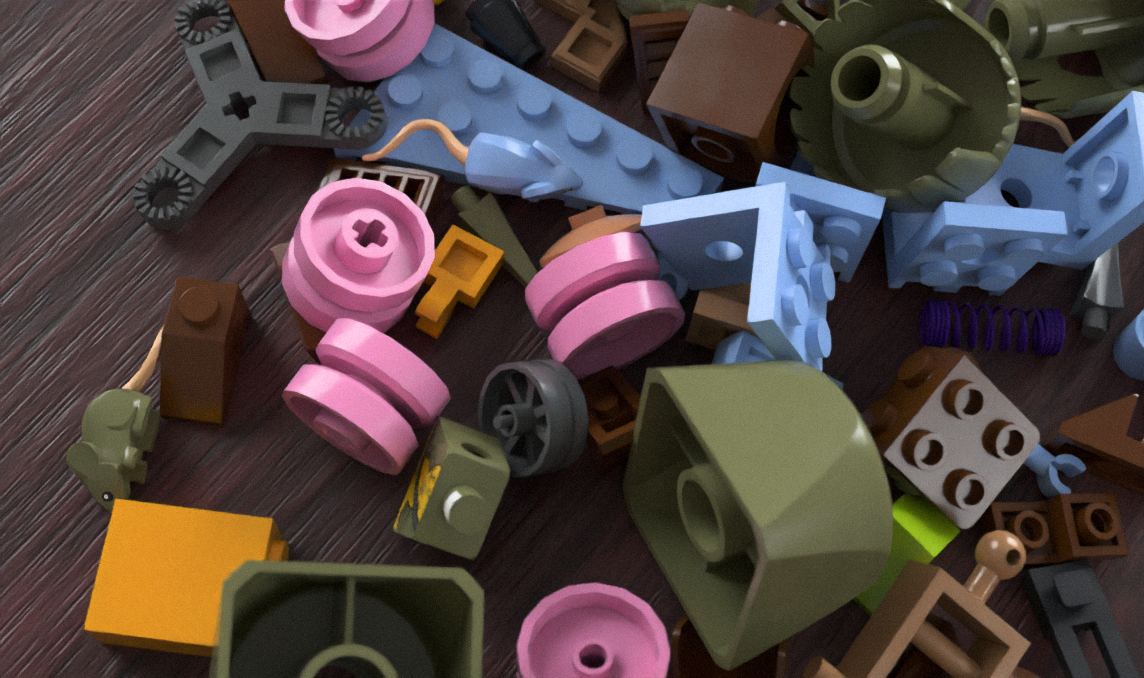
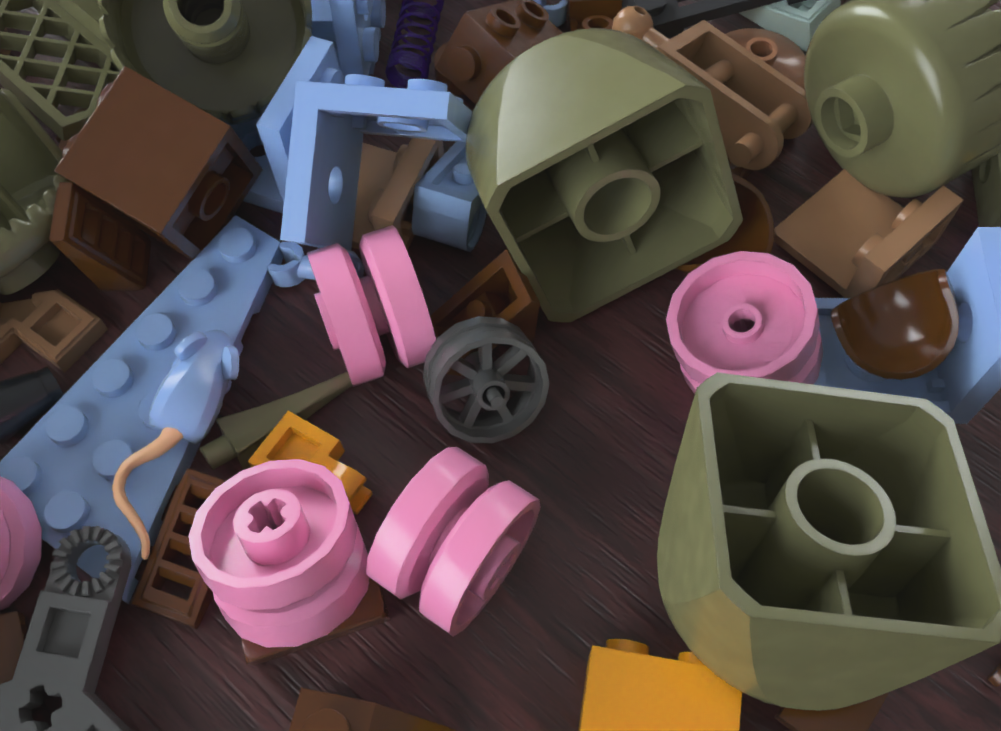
camera: 80 degrees left, 5 degrees down
(454, 490) = (572, 446): olive torso -> none
(589, 226) = (294, 313): nougat dish -> none

